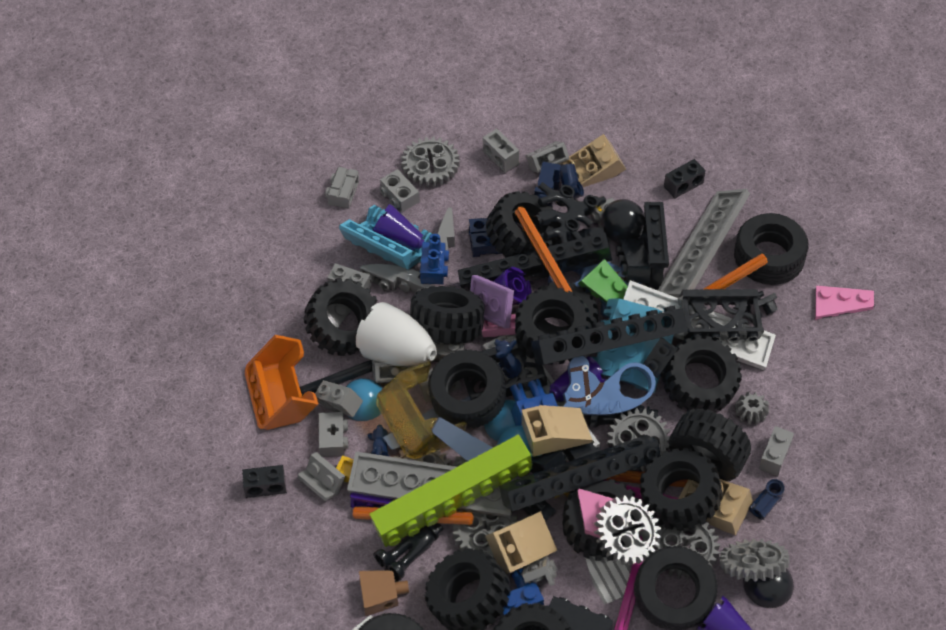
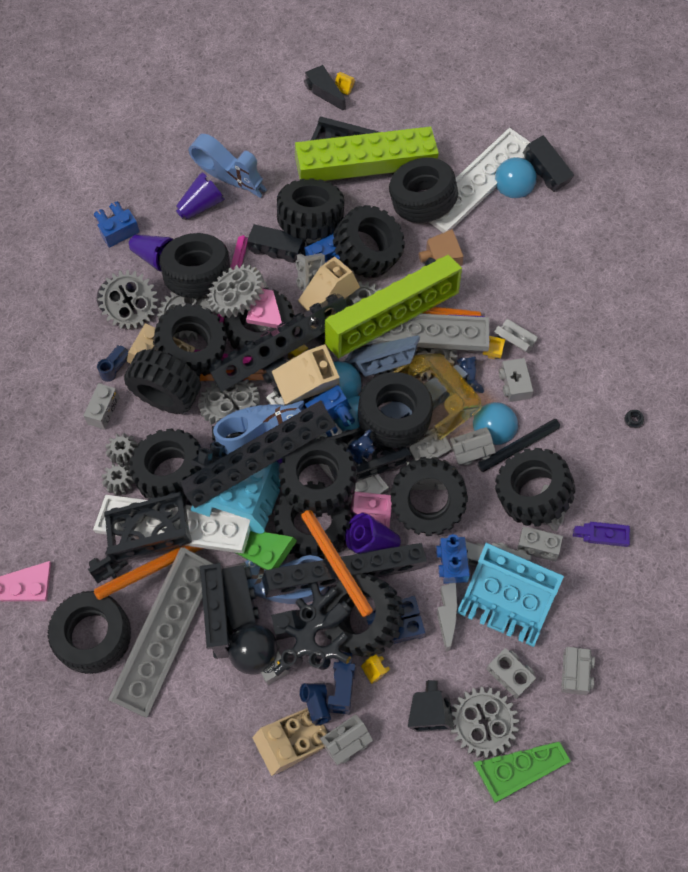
camera: 175 degrees right, 10 degrees up
(221, 383) = (634, 413): none -> black plate
(264, 481) = (566, 328): black brick -> none
(275, 386) = (578, 413): orange windscreen -> none
(286, 288) = (604, 533): none -> dark purple hinge
(338, 398) = (519, 405): light grey brick -> none
(394, 337) = (474, 454): white cylinder -> none
(398, 229) = (501, 598): dark purple cone -> none
(406, 131) = (517, 770): none -> bright green wing
(472, 167) = (430, 710): none -> black torso
(497, 300) = (385, 517): lavender tile -> none
(500, 150) = (402, 741): light grey brick -> none
(684, 178) = (183, 726): black brick -> none
(754, 380) = (115, 485): none -> light grey gear

